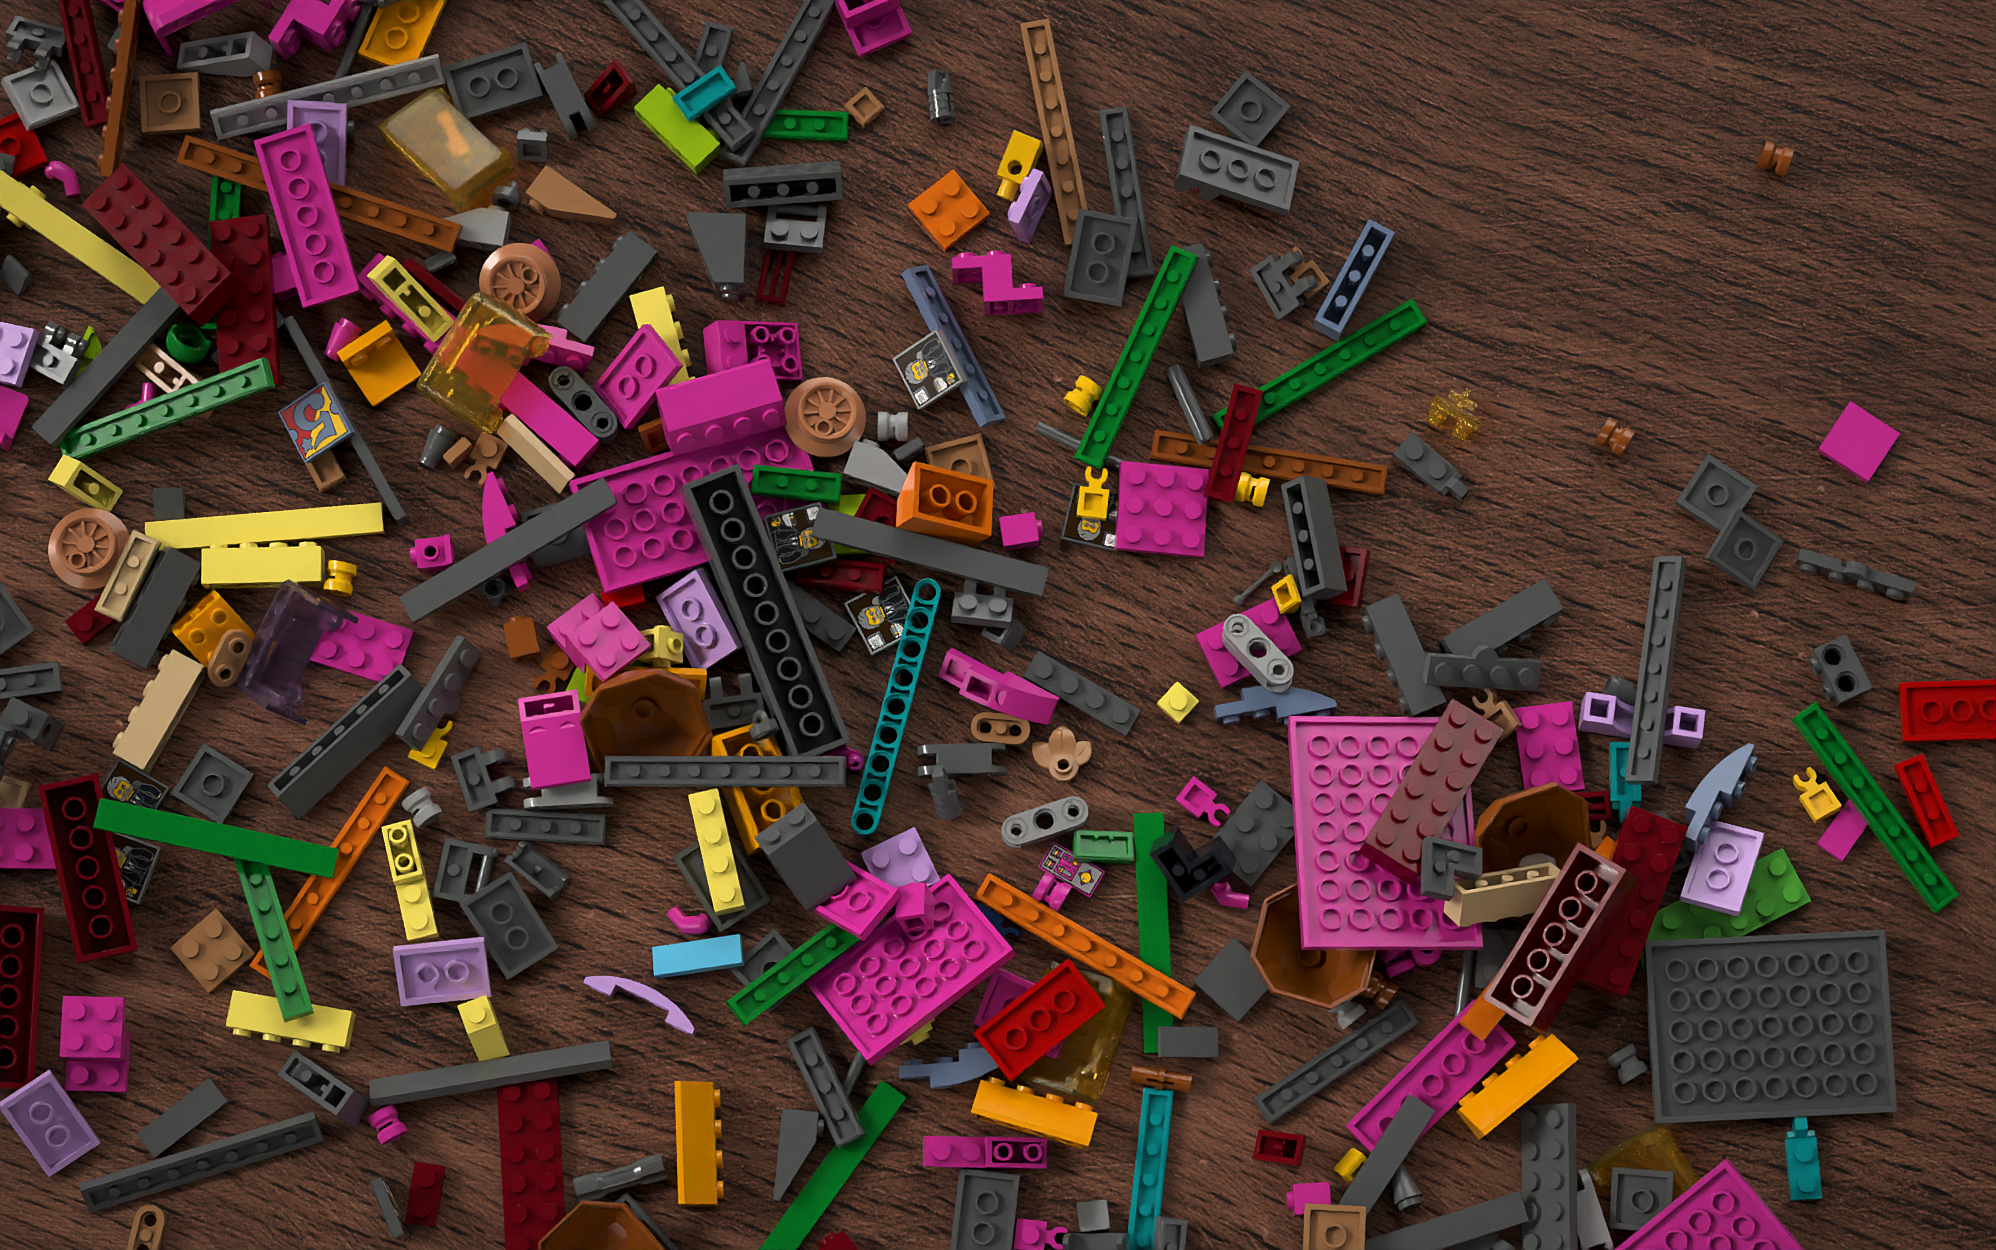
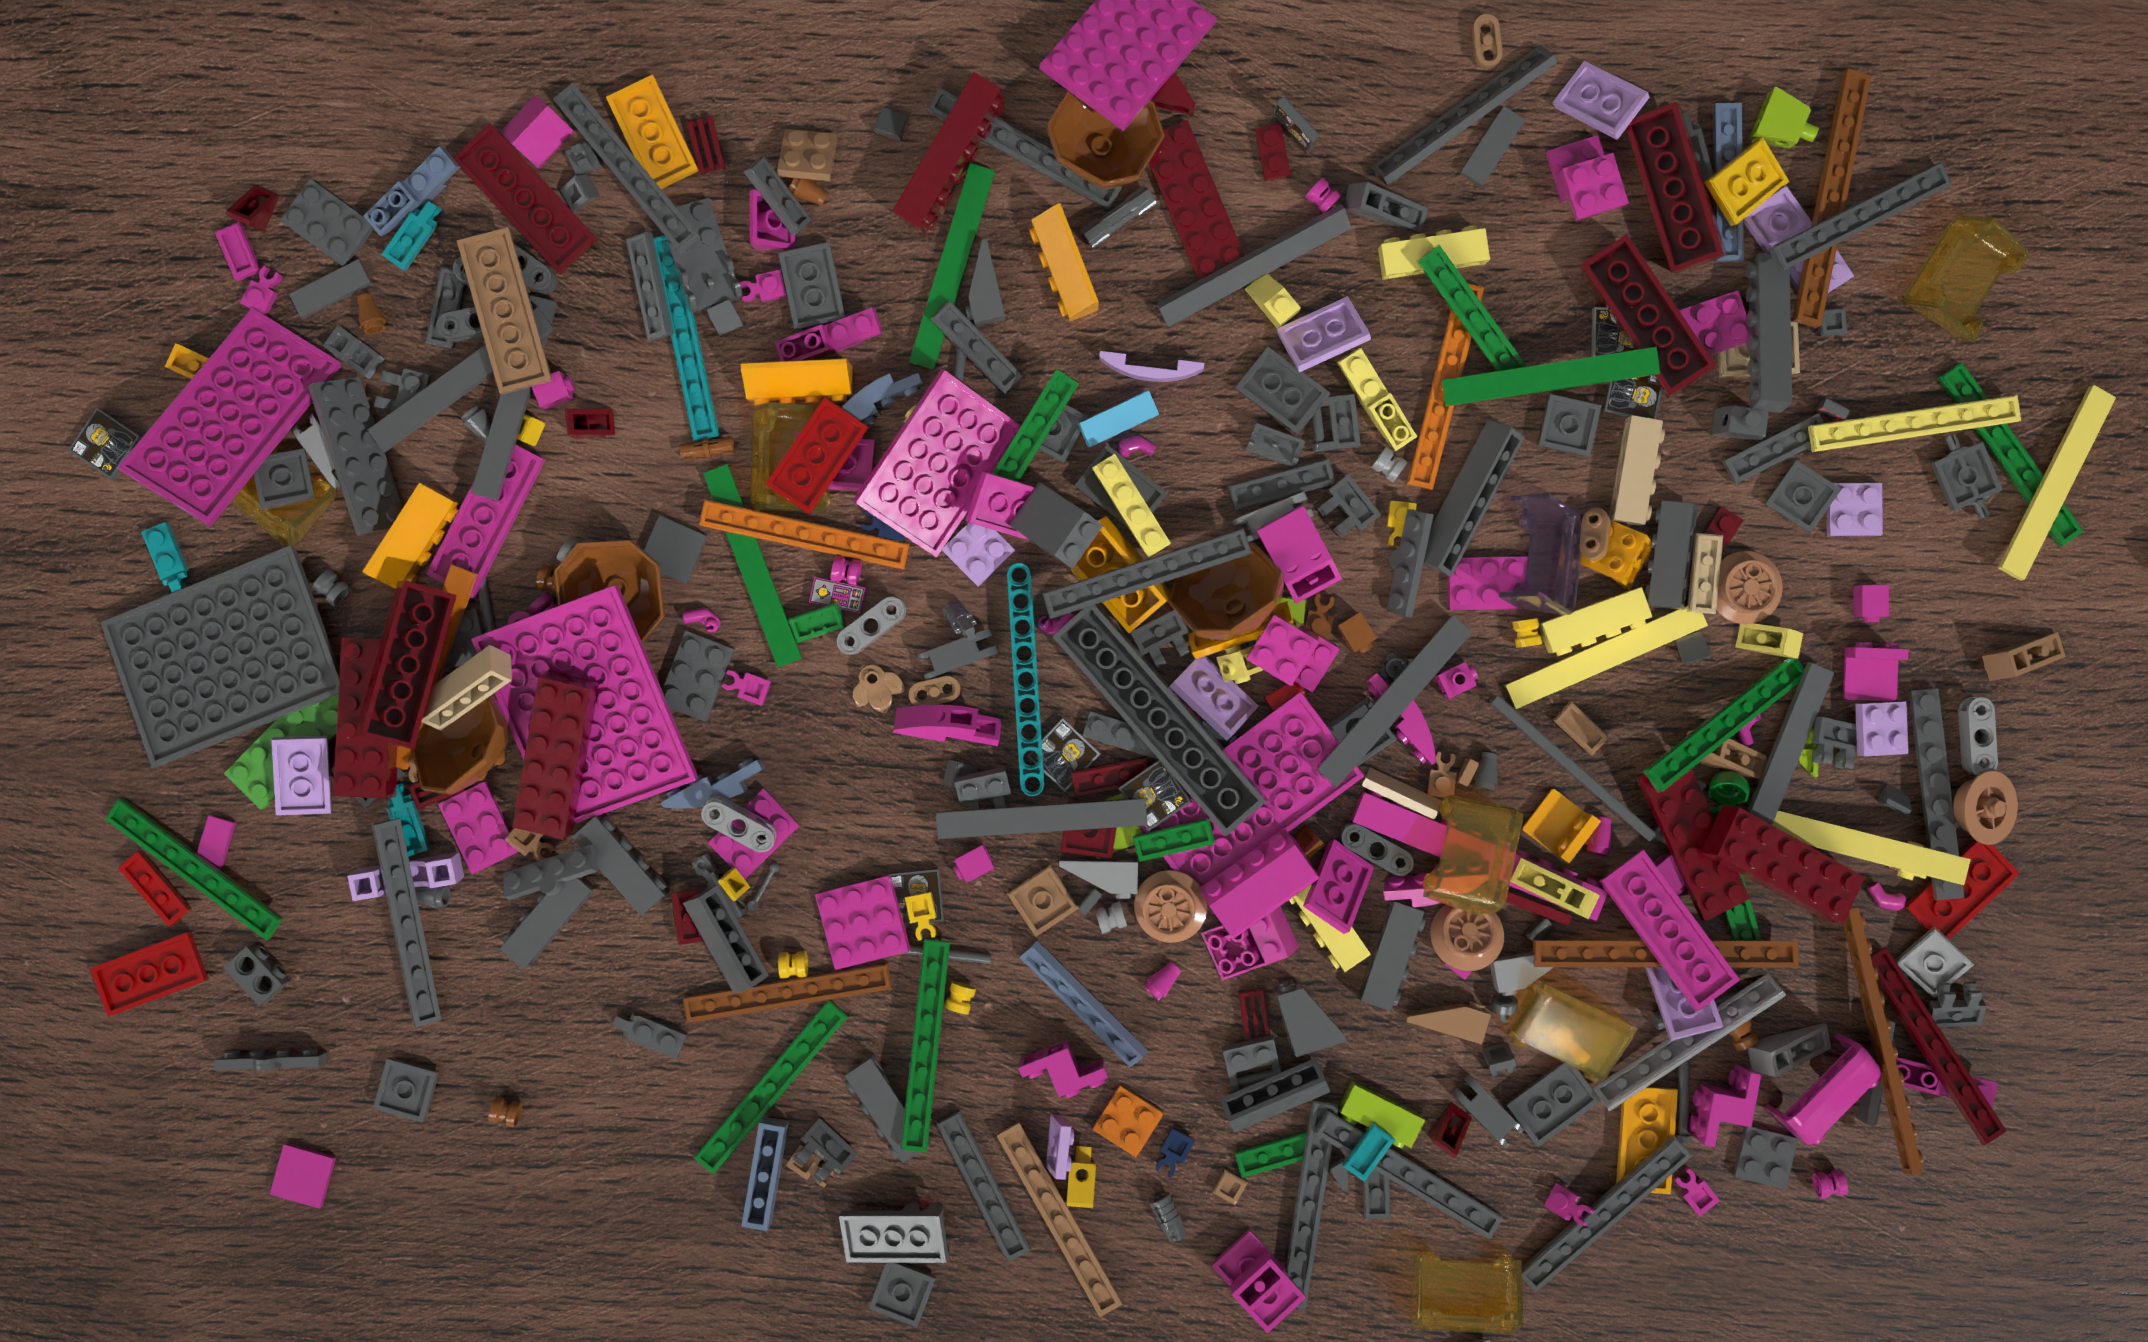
camera: 165 degrees right, 10 degrees up
(170, 103) = (1820, 992): medium nougat plate -> none
(213, 951) = (1518, 290): medium nougat plate -> none
(316, 422) = (1595, 756): tile -> none
(763, 729) = (1127, 620): dark grey tile -> none
(861, 342) = (1162, 981): none -> dark pink cone
(907, 165) = (1176, 1147): none -> dark blue plate
(915, 907) = (951, 516): dark pink brick -> none
(930, 369) = (1096, 976): tile -> none
(945, 504) = (1041, 863): orange slope -> none
(1082, 694) = (878, 744): dark grey plate -> none
(1100, 257) = (985, 1121): dark grey plate -> none
(1177, 702) = (796, 764): light yellow plate -> none
(1187, 1042) = (694, 484): dark grey tile -> none
(1189, 404) = (869, 1019): dark grey axle -> none
(1190, 869) = (734, 626): black brick -> none
(1233, 443) = (820, 997): dark red plate -> none
(1336, 1061) = (570, 510): dark grey tile -> none
(1442, 408) = (656, 1087): clear yellow hips -> none
(1442, 861) = (519, 692): dark grey plate -> none
(1717, 789) = (325, 839): sand blue slope -> none
(1744, 549) = (368, 1050): dark grey tile -> none
(1817, 799) = (242, 859): yellow plate -> none

